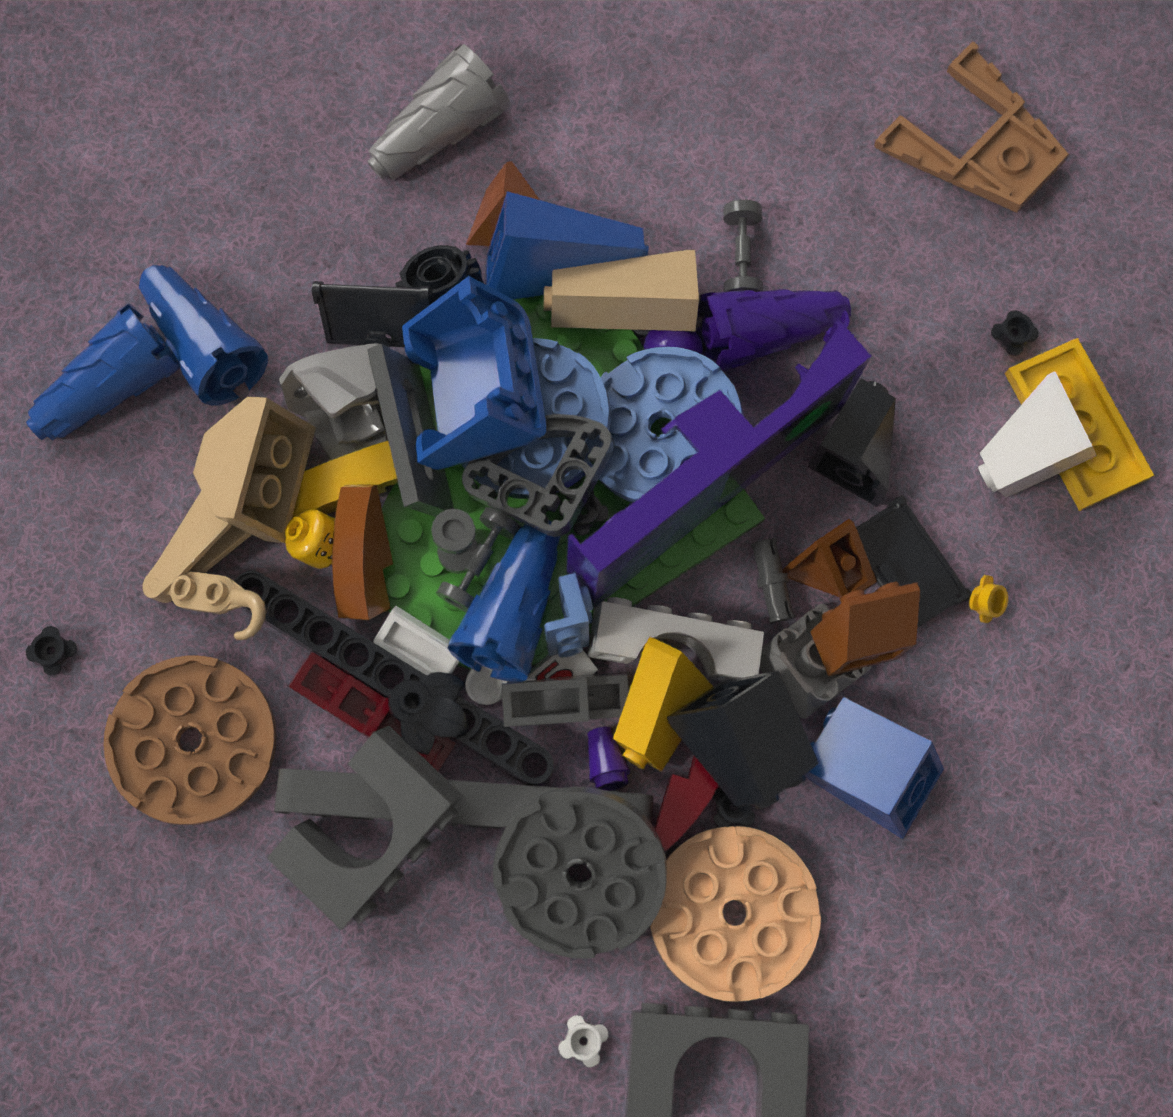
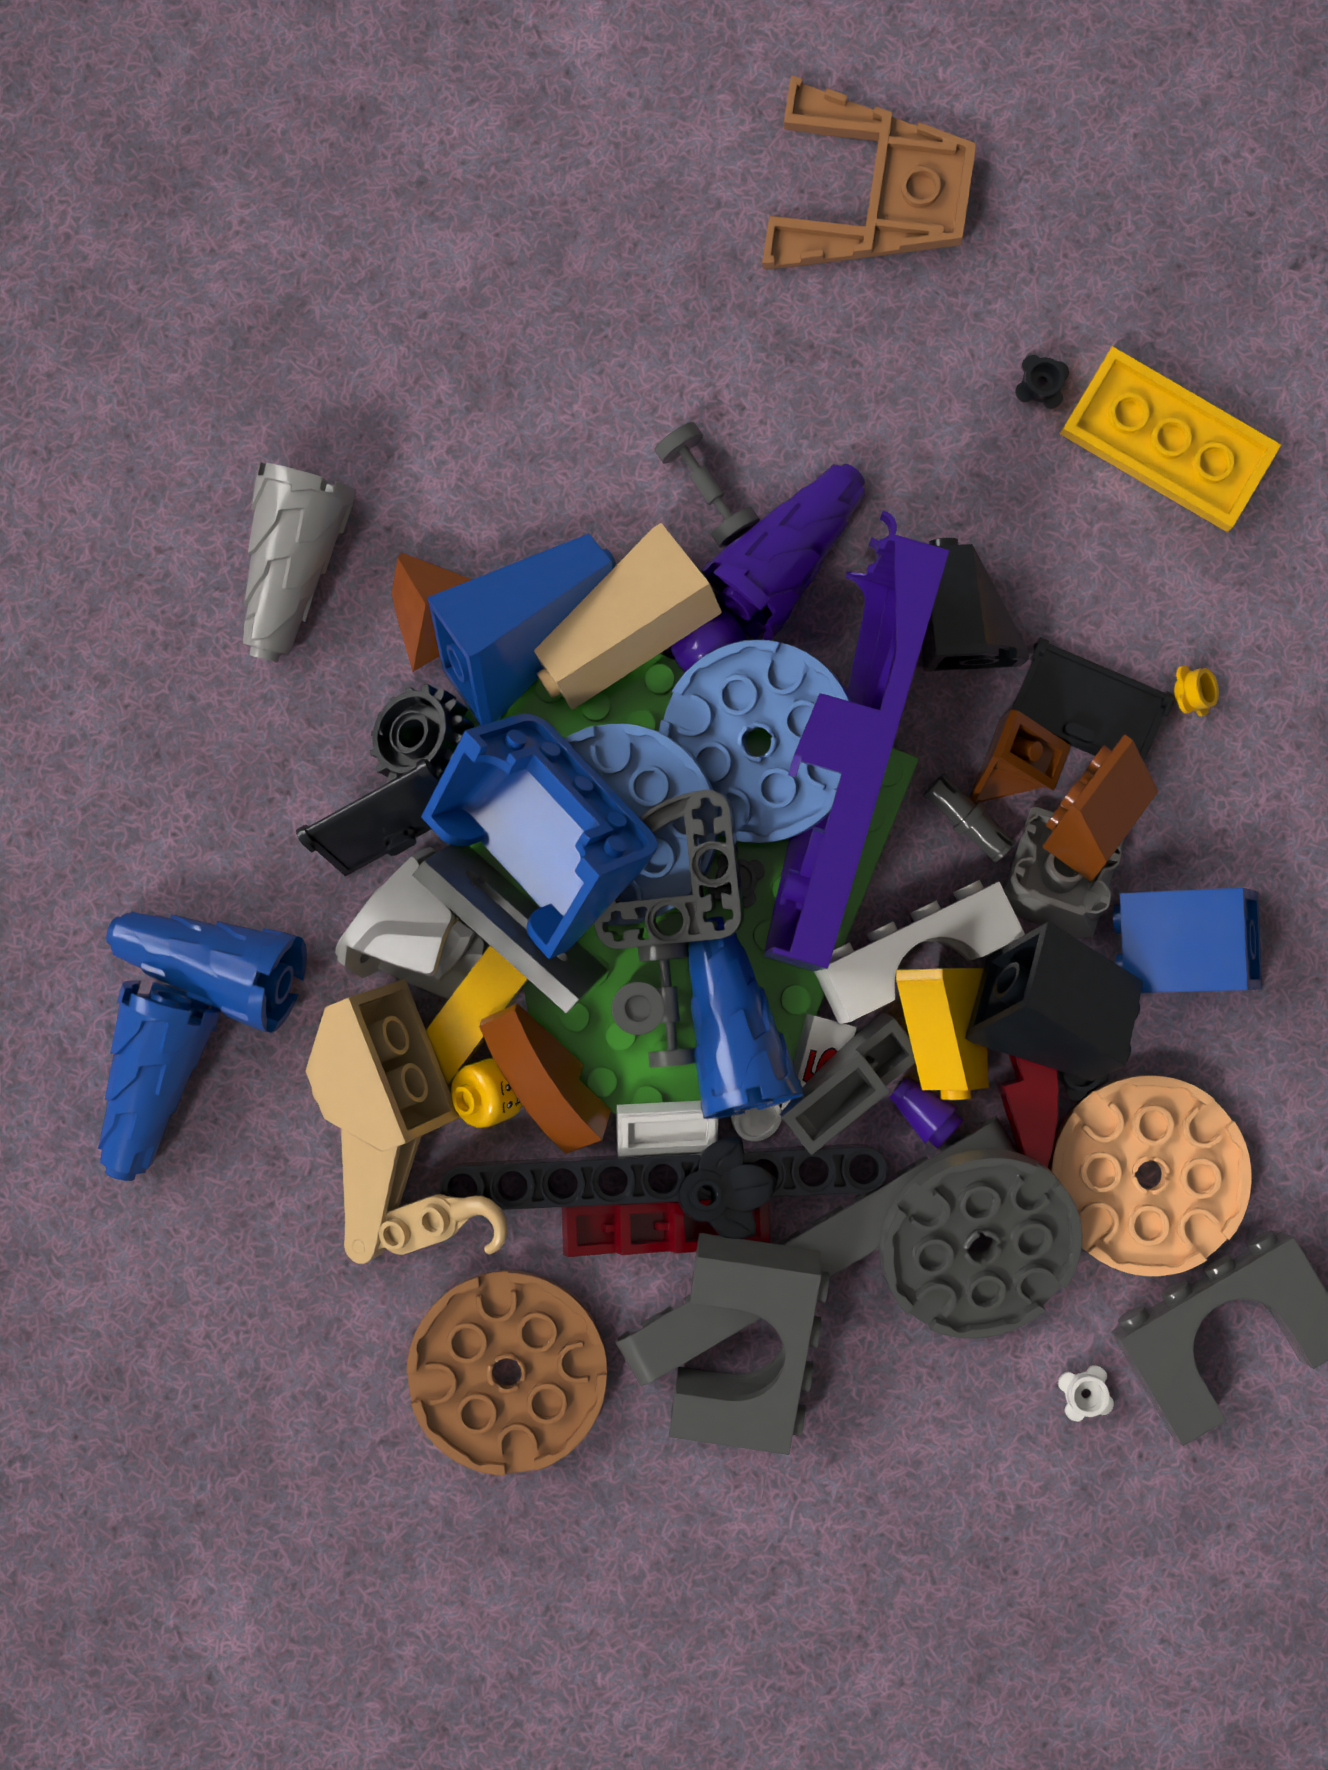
camera: 25 degrees left, 10 degrees up
(39, 648) = (293, 1390): black plate -> none
(570, 634) = (806, 993): medium blue bracket -> none
(1036, 441) = (1150, 498): white slope -> none

